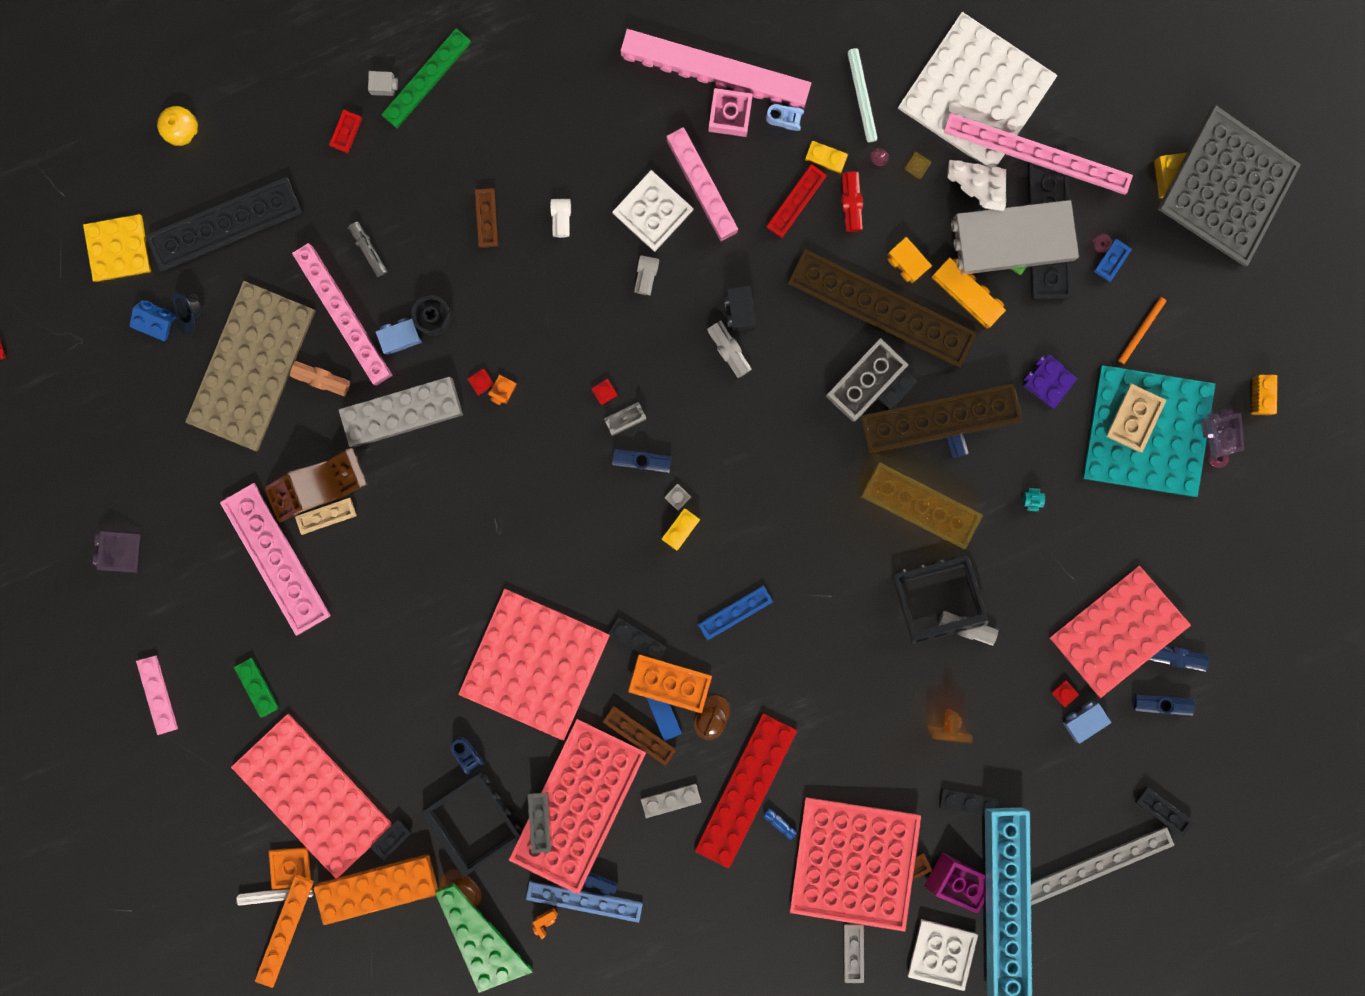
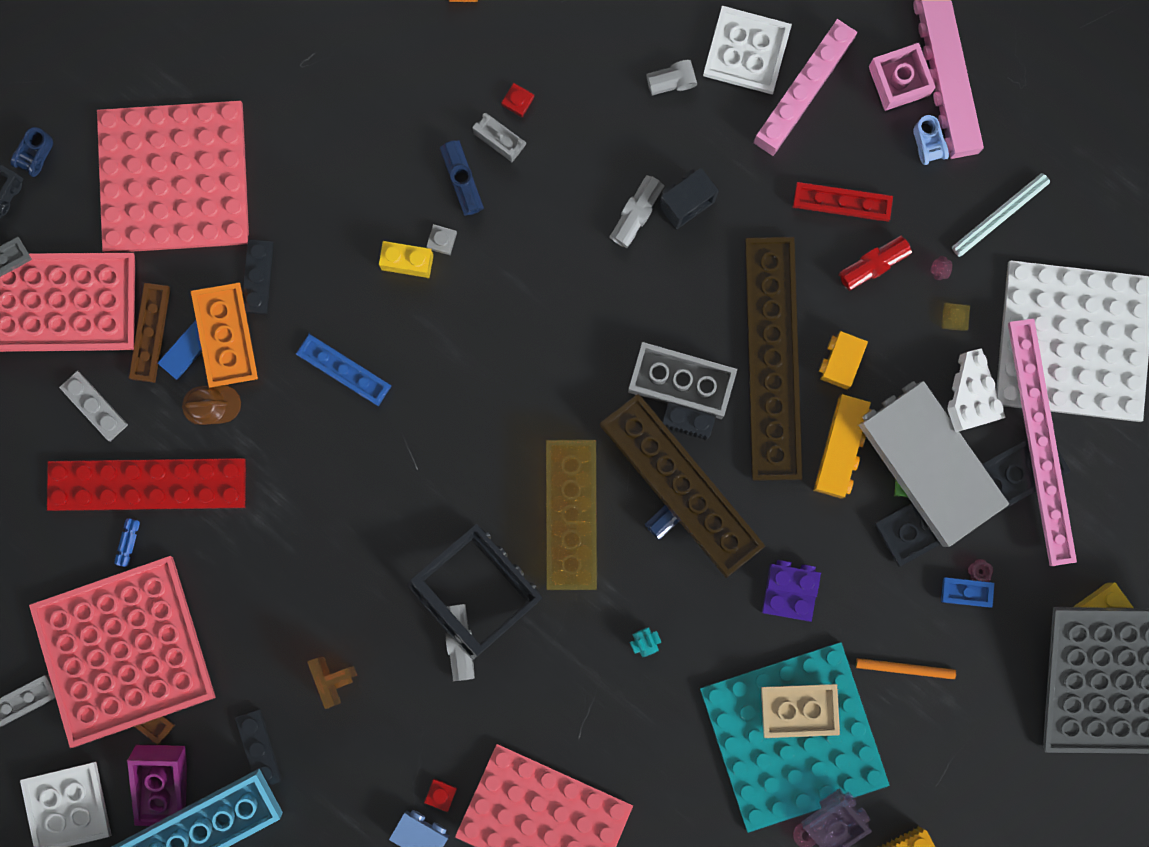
camera: 60 degrees right, 5 degrees down
(826, 157) = (910, 210): yellow plate -> none

